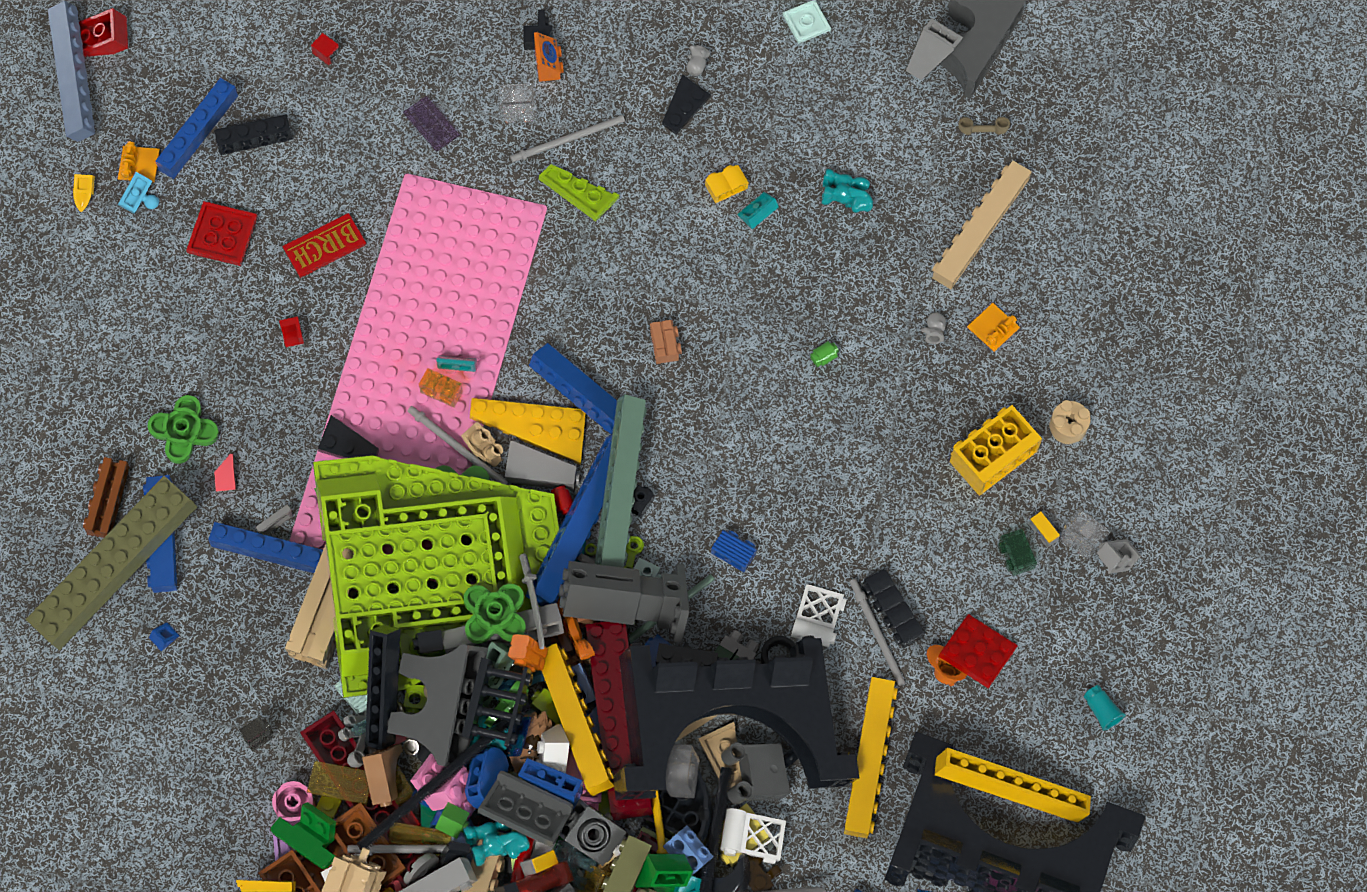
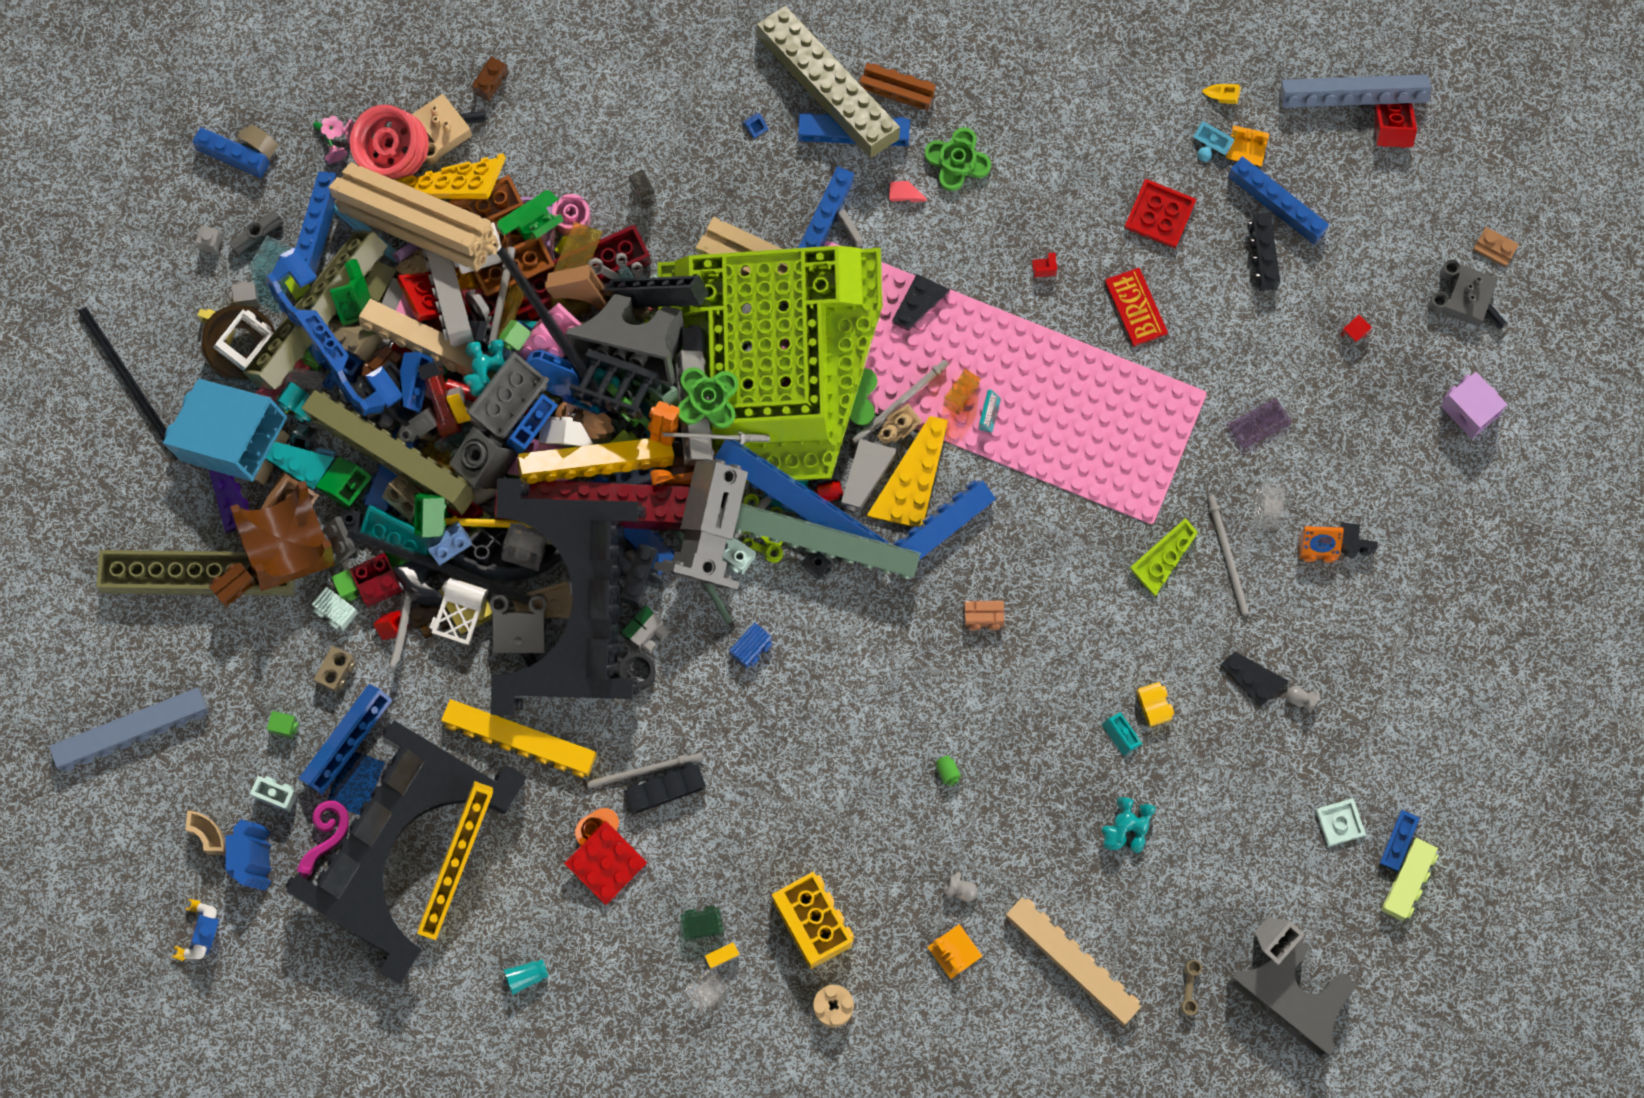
camera: 100 degrees right, 5 degrees up
(809, 625) = (655, 709): white piece -> none
(1118, 555) = (678, 1023): light grey window -> none

